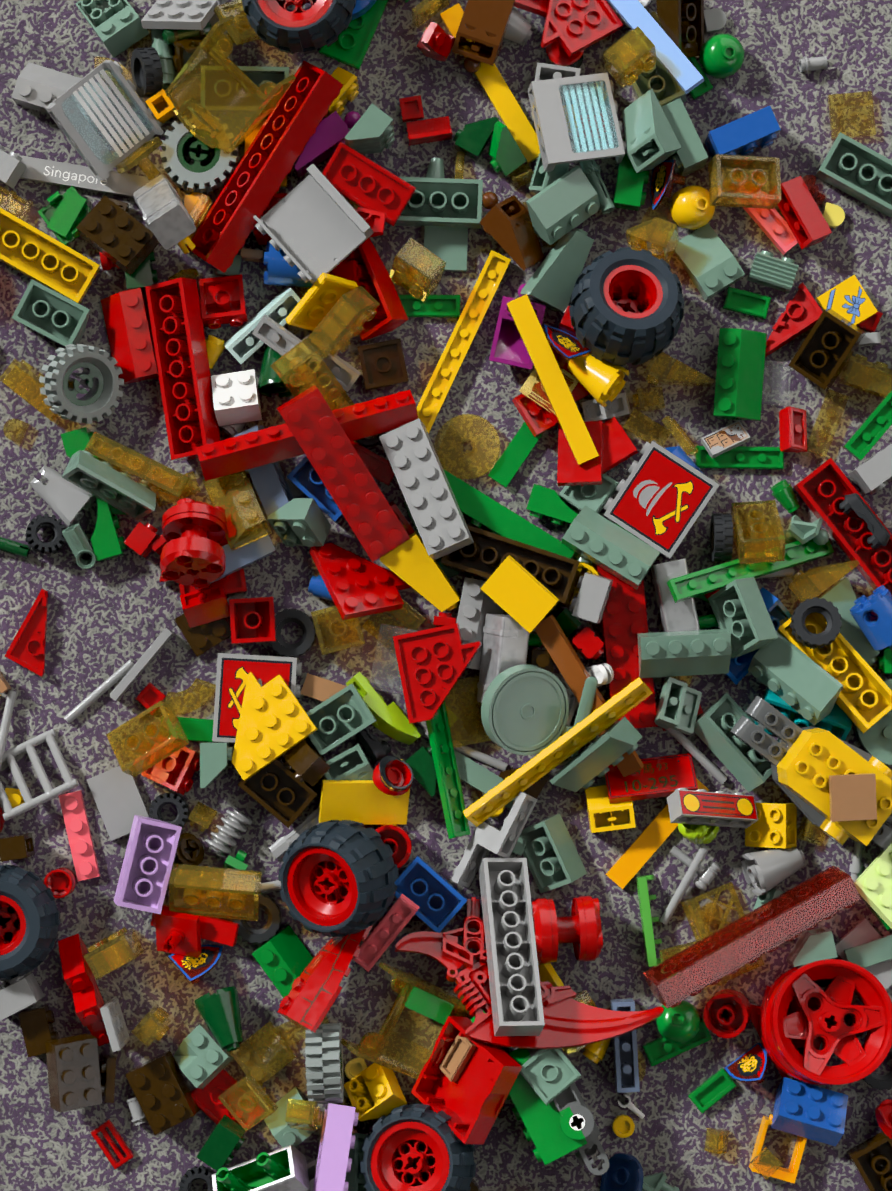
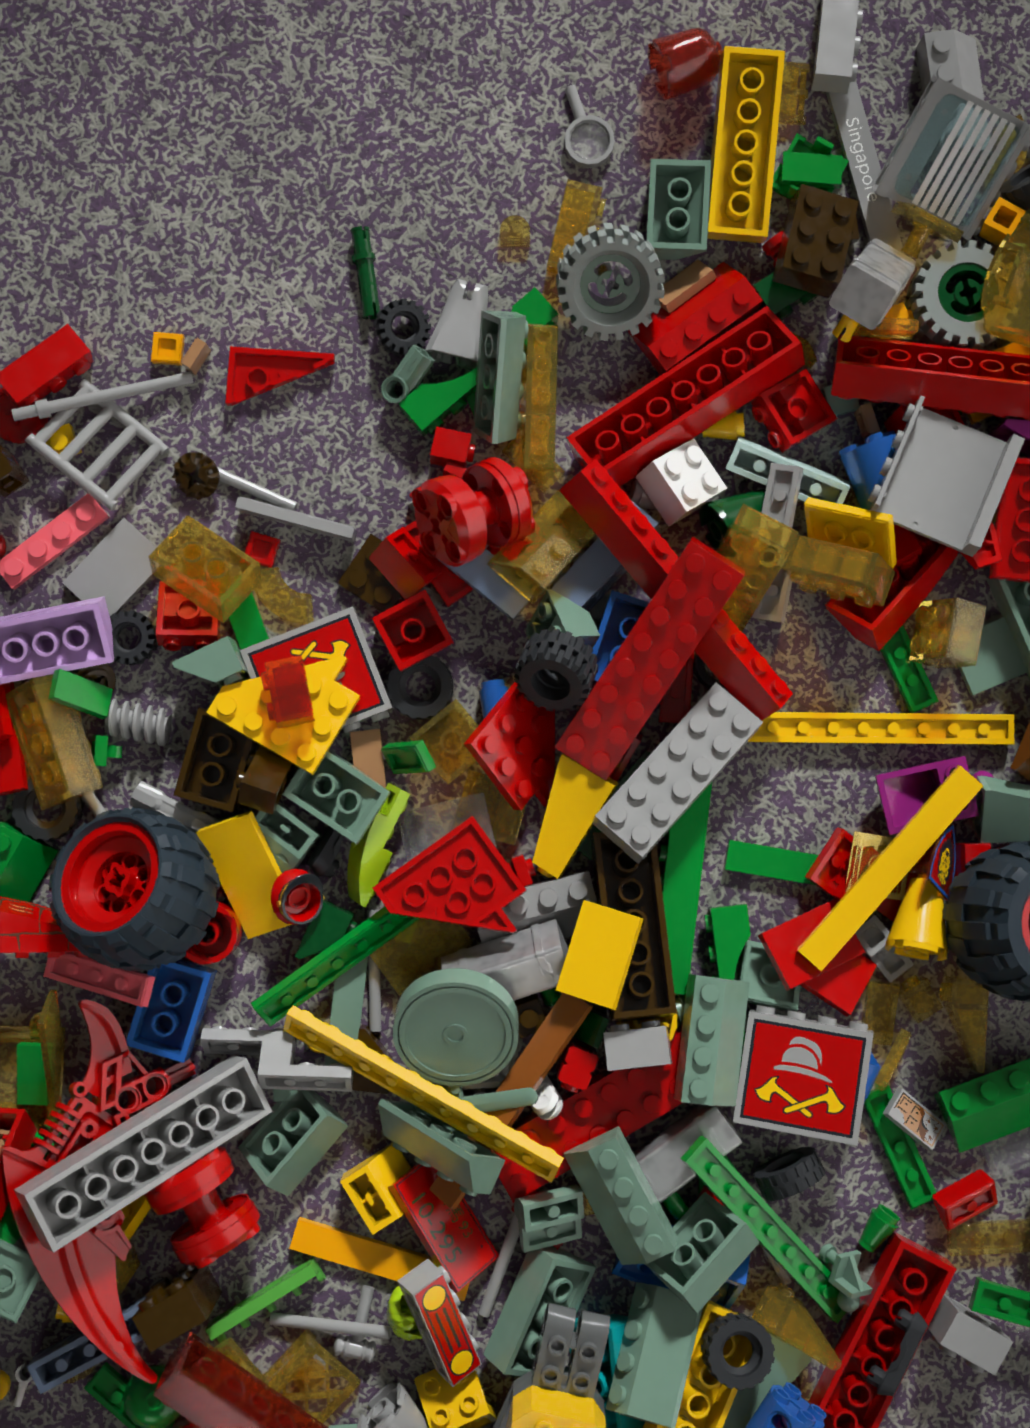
camera: 60 degrees right, 0 degrees up
(83, 709) = (207, 472): none -> dark brown gear
(105, 332) = (686, 285): none -> medium nougat tile
(192, 858) = (80, 694): none -> green tile
(202, 815) = (143, 681): clear yellow tile -> none
(255, 718) = (288, 692): none -> clear red brick
(322, 537) = (556, 670): none -> black tyre
(335, 661) = (408, 757): none -> green tile
(383, 364) = (807, 645): dark brown plate -> none
(484, 443) = (767, 817): clear yellow piece -> none
(623, 975) = (176, 1305): none -> dark brown brick
(758, 532) = (818, 1221): clear yellow brick -> none

